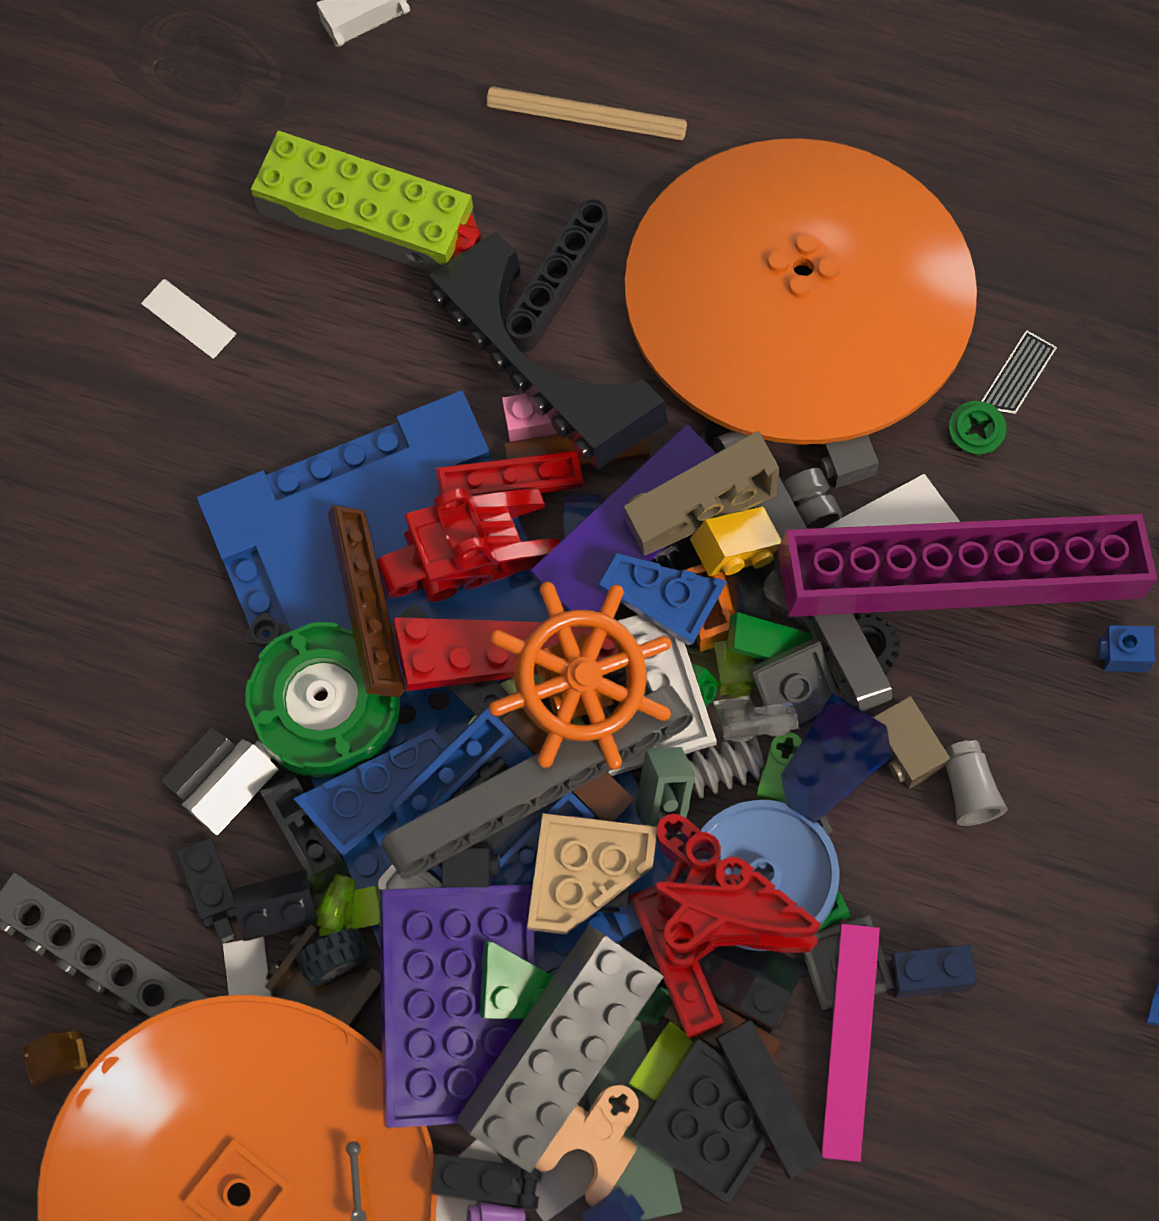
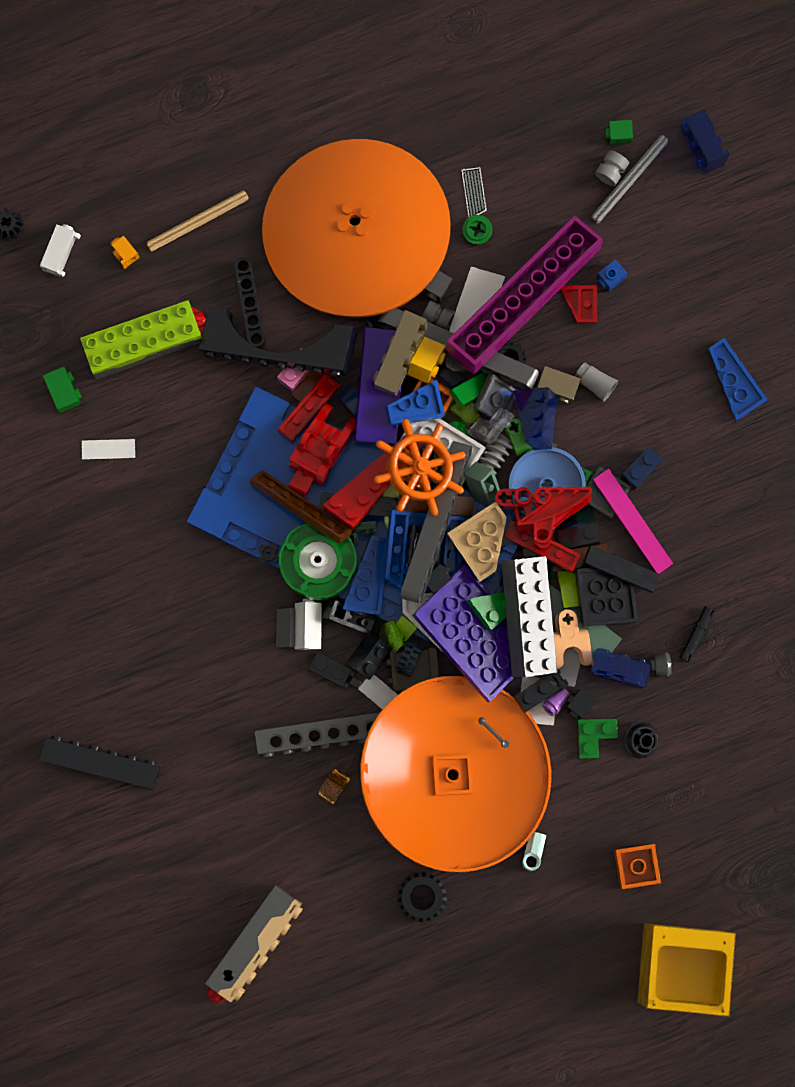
camera: 45 degrees left, 10 degrees up
(198, 188) = (62, 389): none -> green brick
(434, 710) = (365, 528): none -> clear green bracket
(448, 76) = (124, 251): none -> light orange brick
(1049, 653) = (582, 302): none -> red wing

